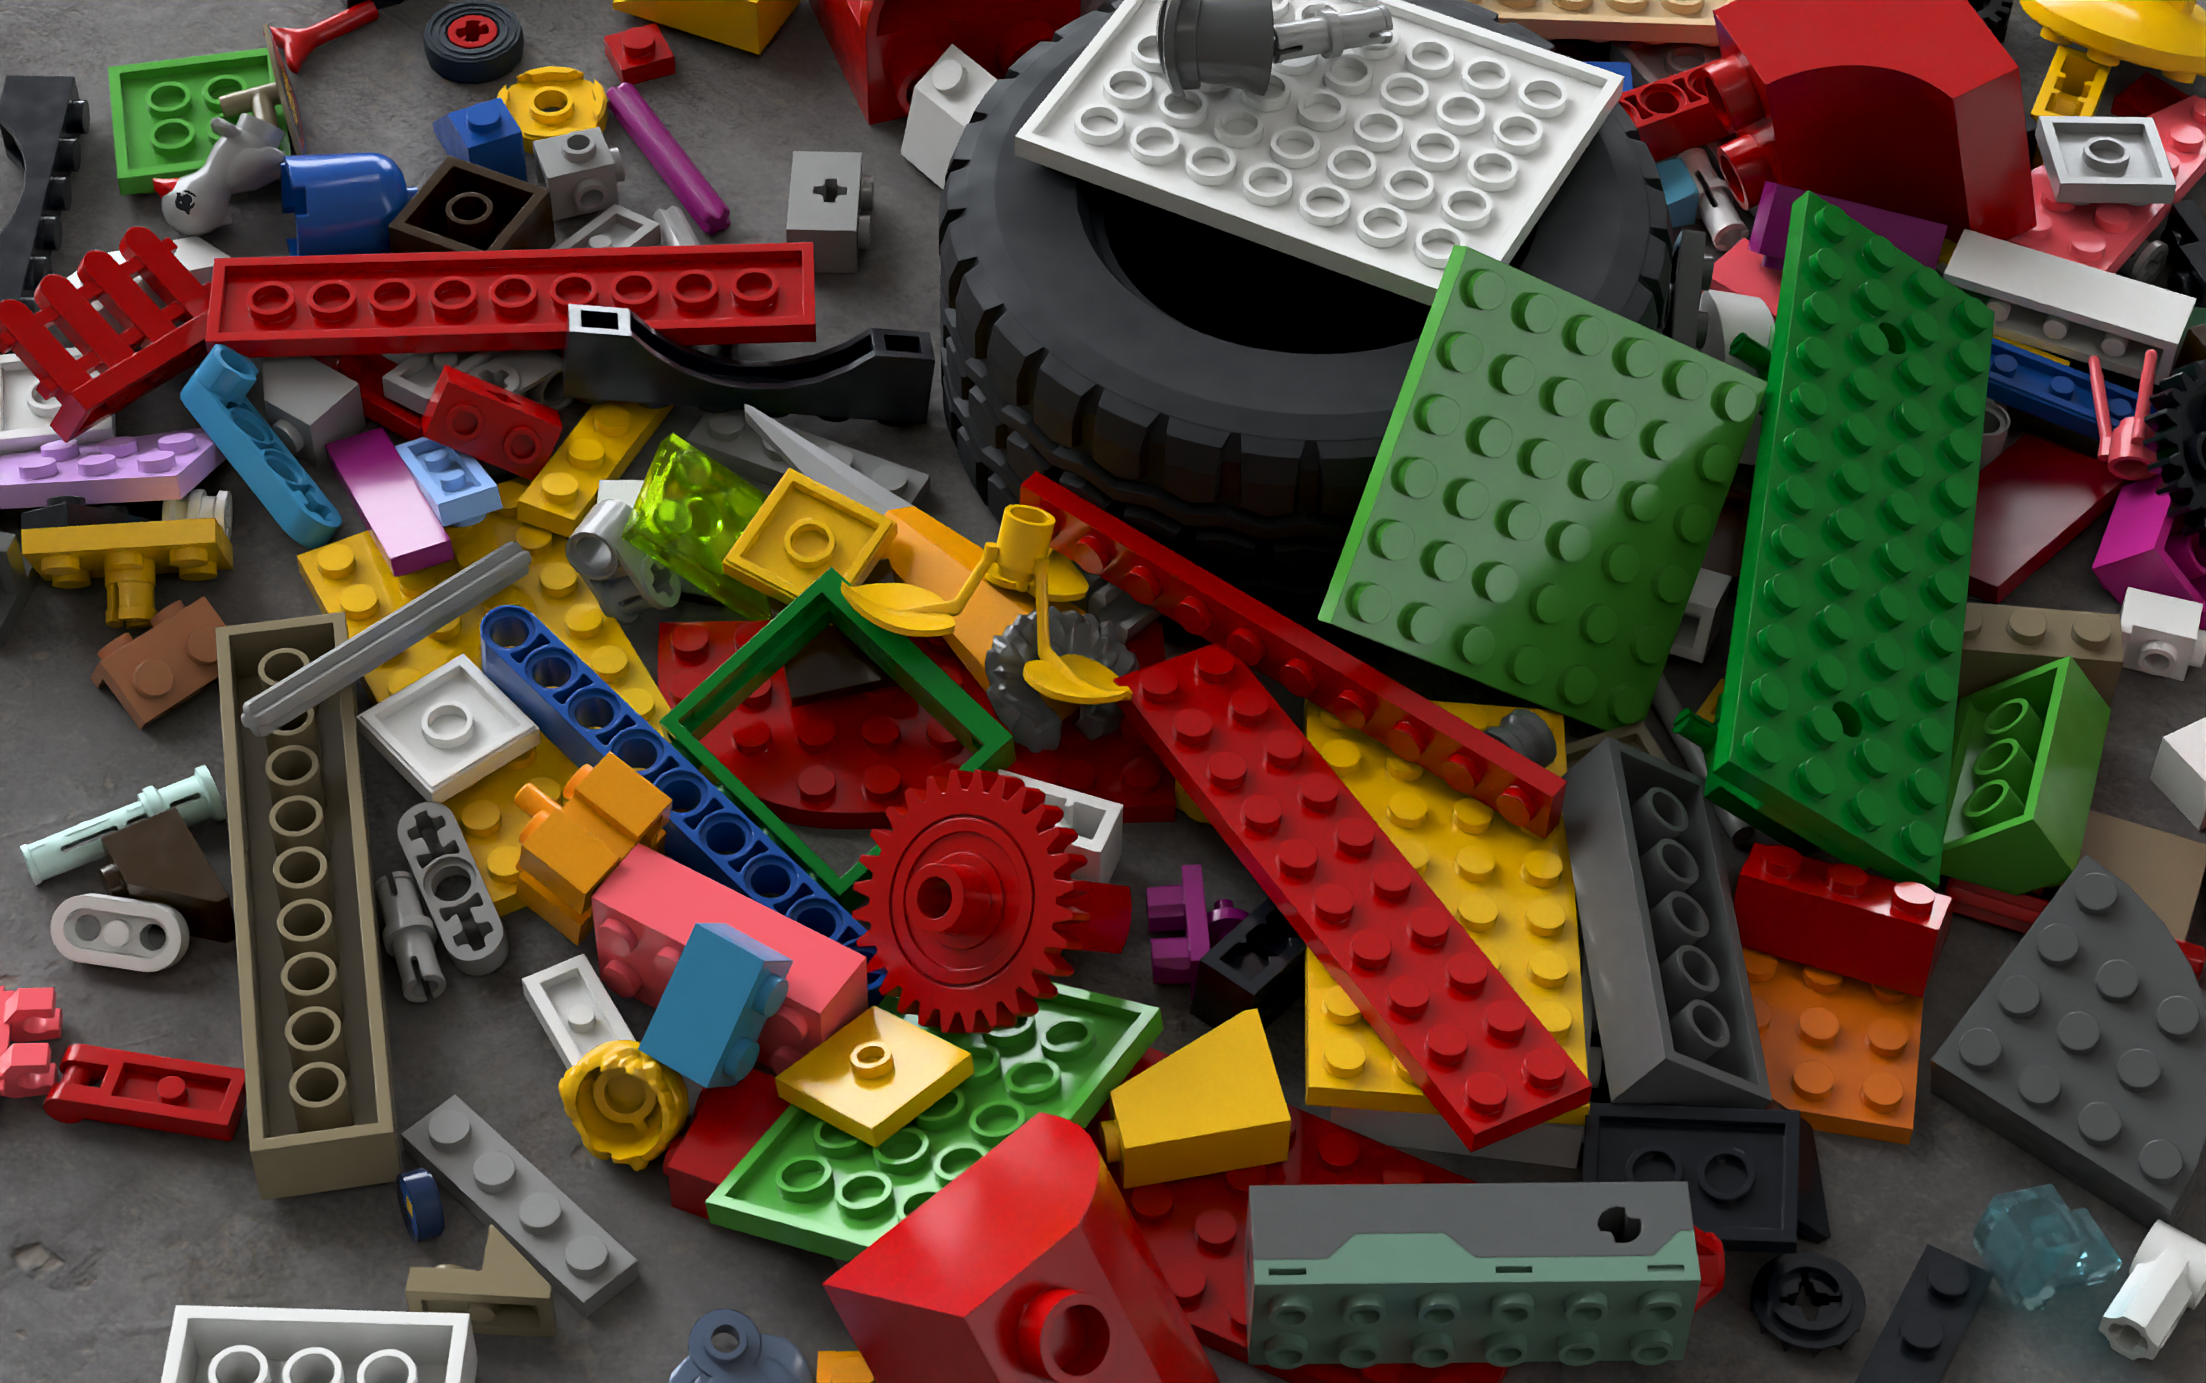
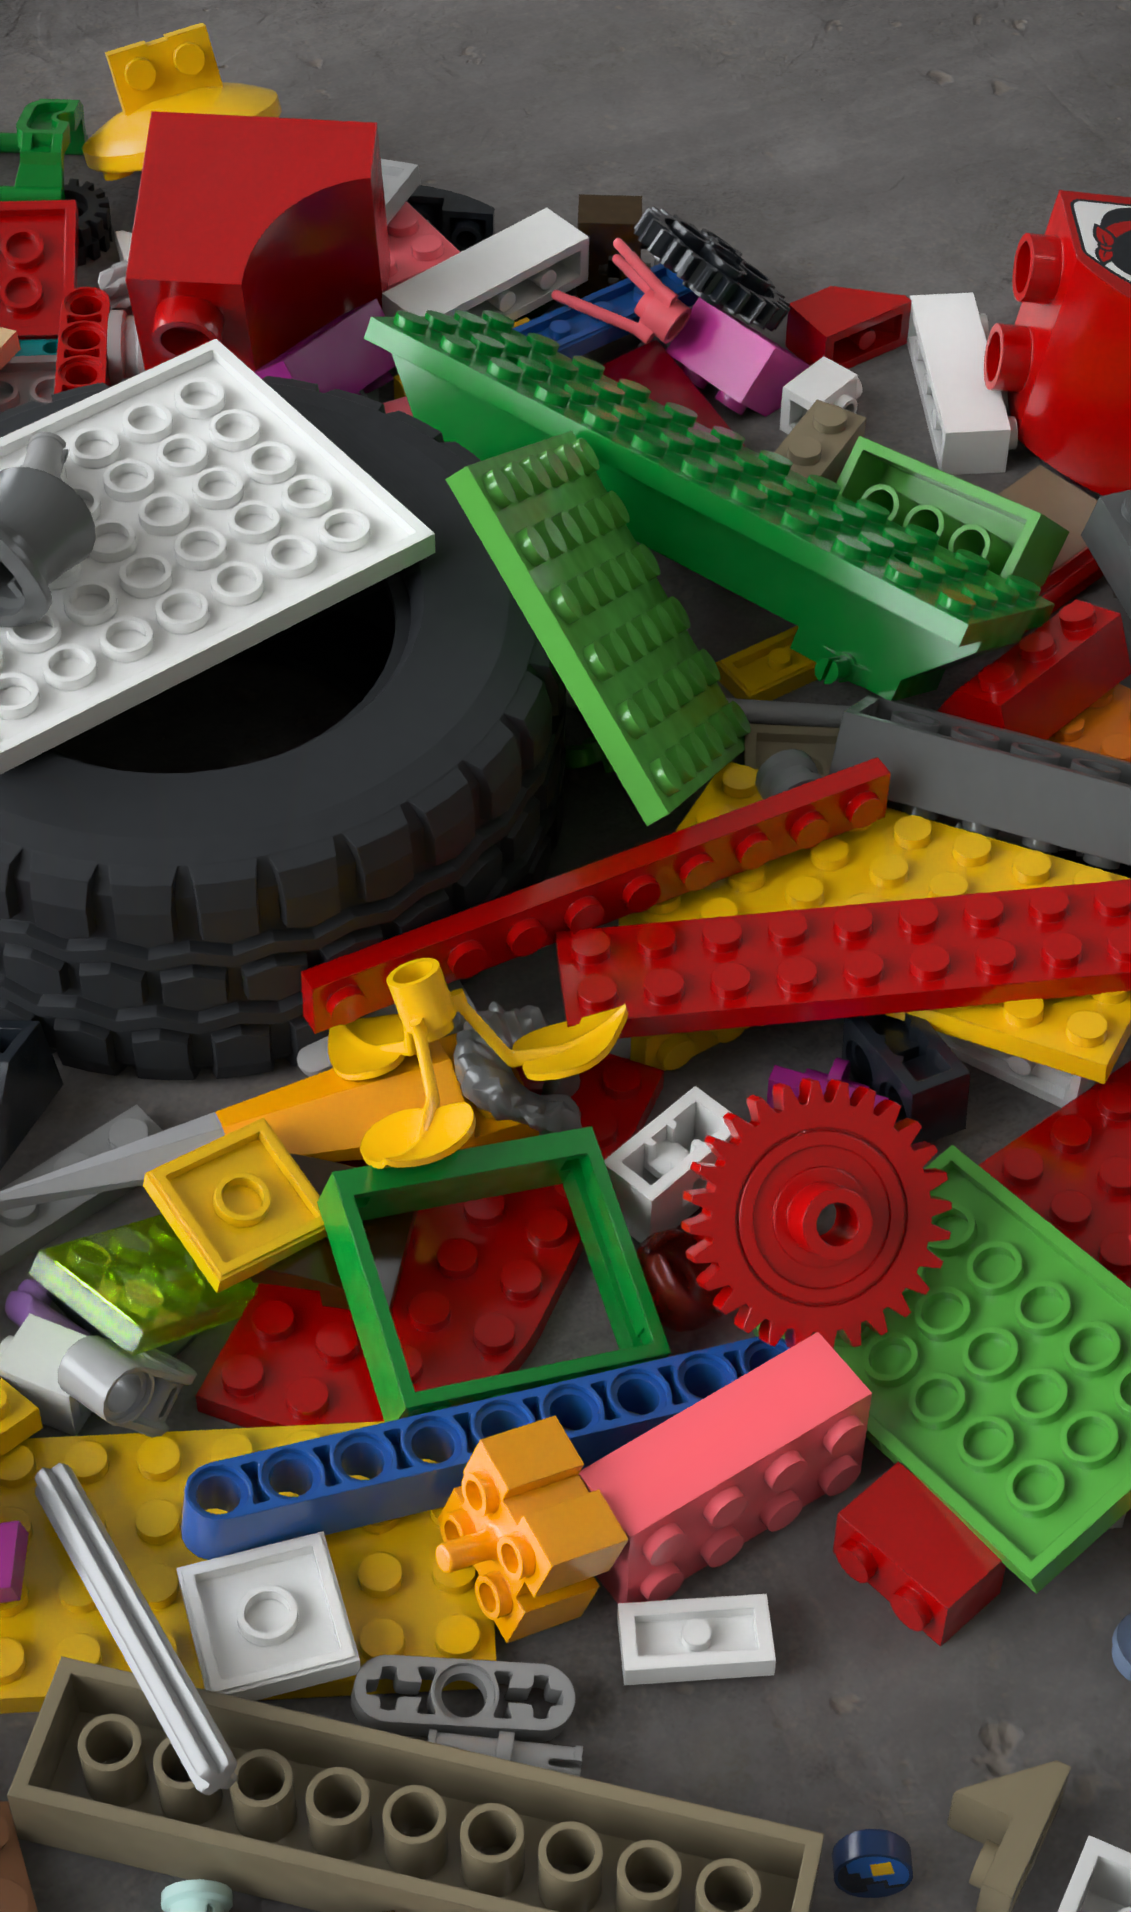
camera: 65 degrees left, 0 degrees up
(521, 1204) = (900, 1770): light grey plate -> none
(624, 1103) = (842, 1623): yellow hair -> none
(717, 1005) = (827, 1473): dark azure brick -> none
(874, 1076) = (938, 1389): yellow plate -> none
(1200, 1109) = (1059, 1153): yellow slope -> none

